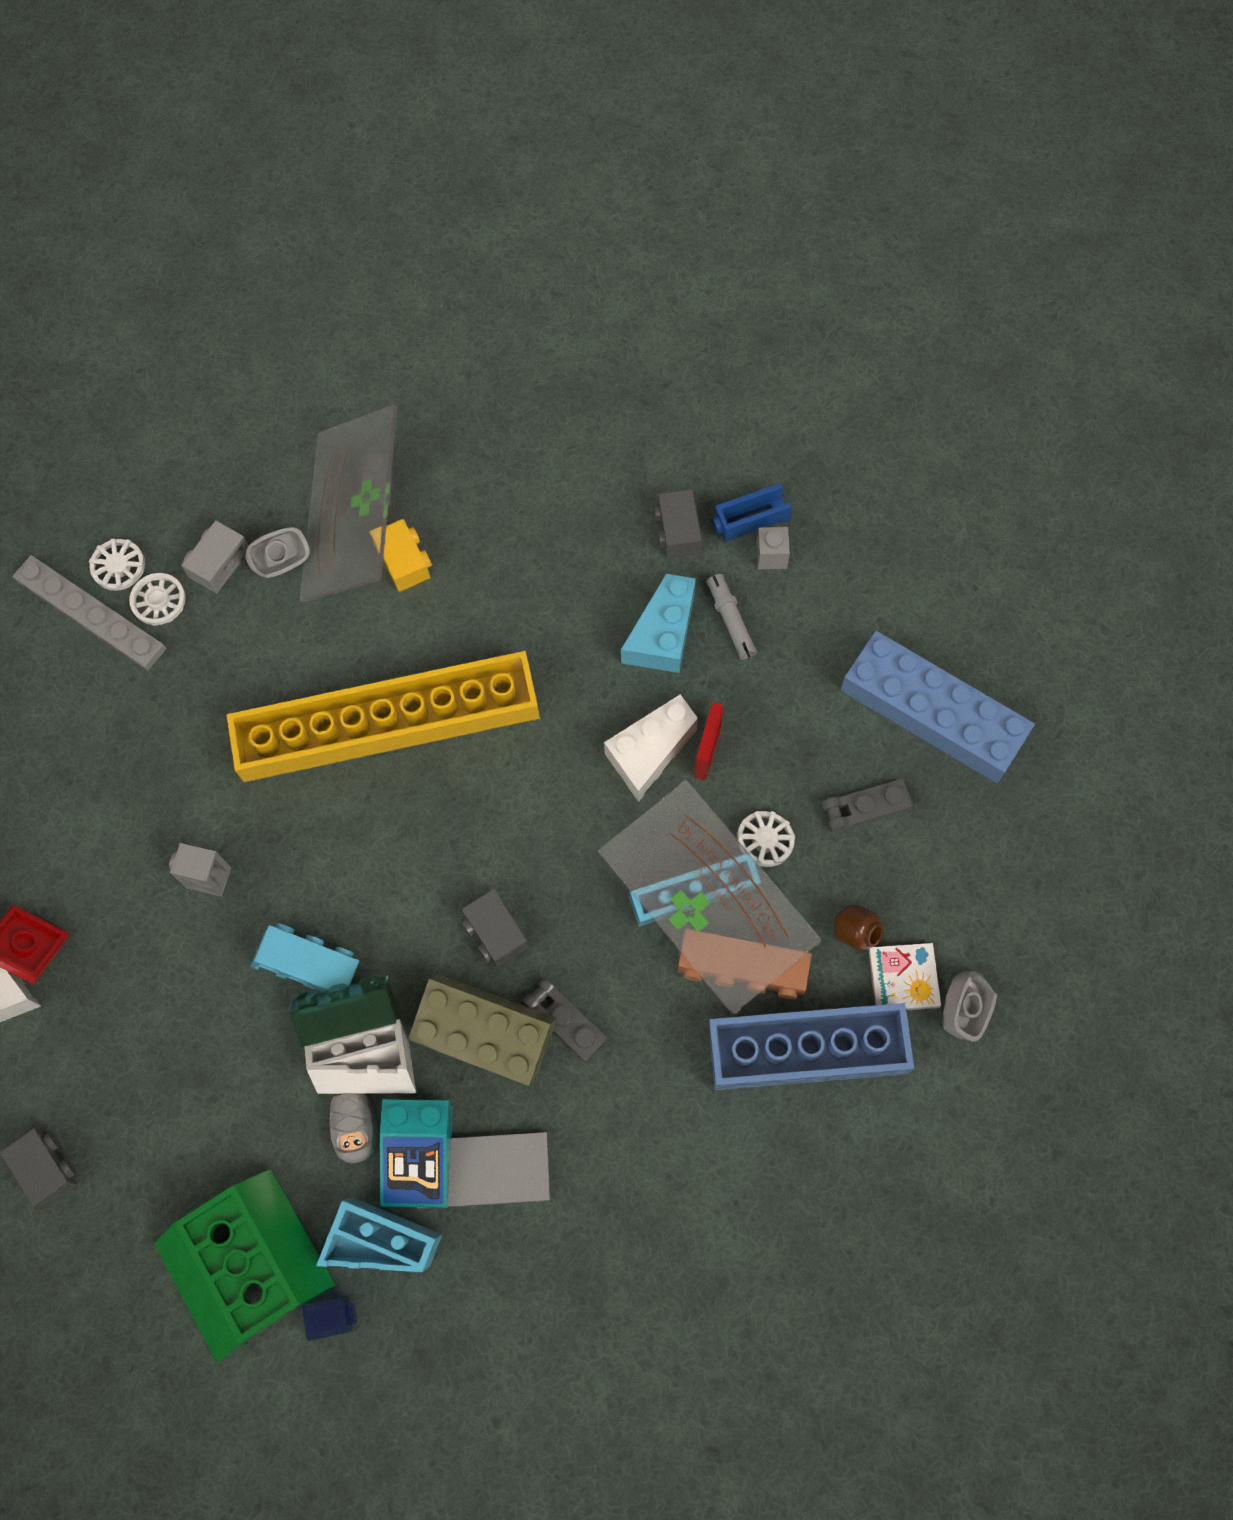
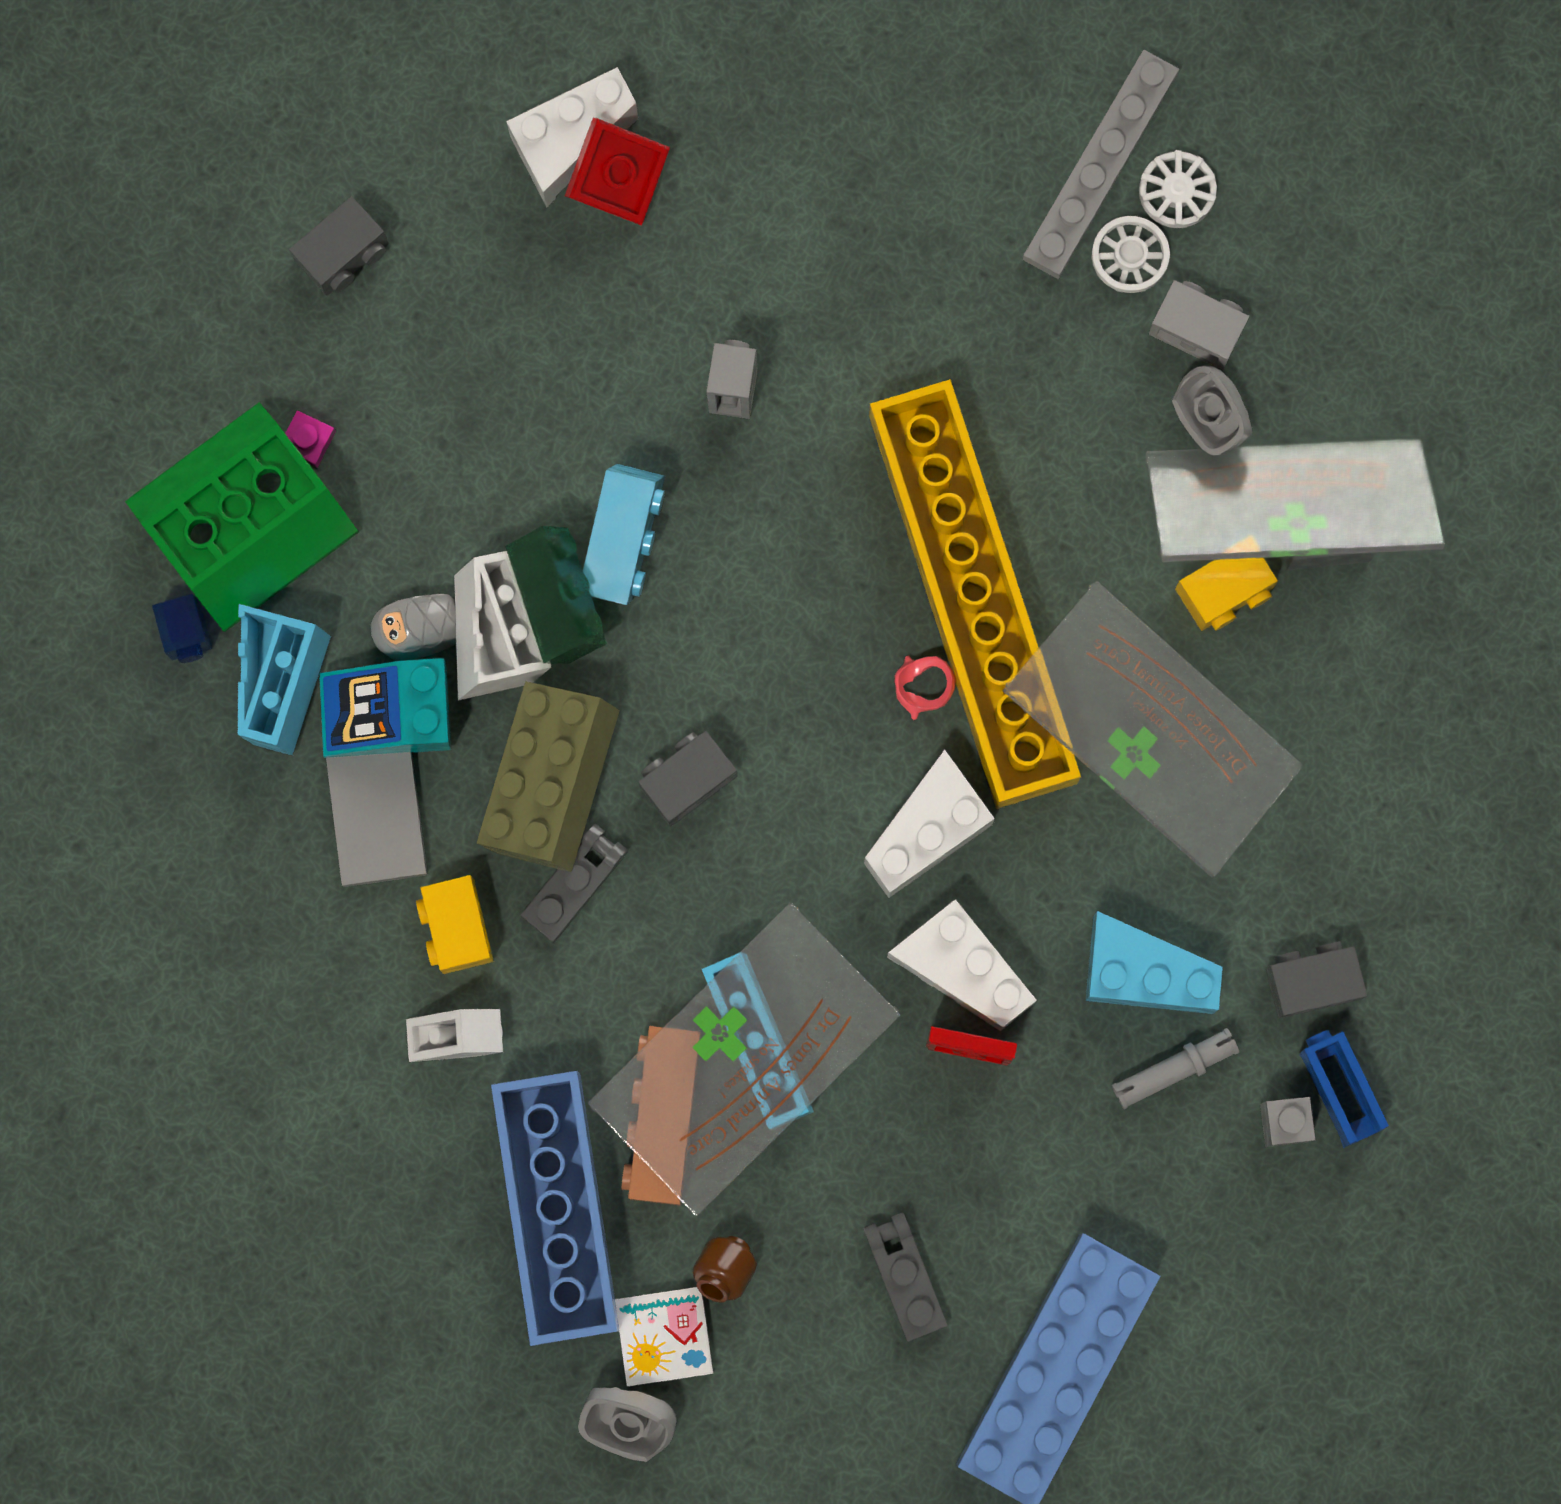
camera: 85 degrees right, 10 degrees up
(187, 1201) = (310, 437): none -> dark pink plate
(432, 765) = (907, 673): none -> coral piece
(494, 607) = (1153, 728): none -> clear piece
(549, 761) = (928, 828): none -> white wedge
(588, 1111) = (455, 925): none -> yellow brick
(673, 1118) = (454, 1034): none -> white slope
(766, 838) = (844, 1136): white wheel -> none

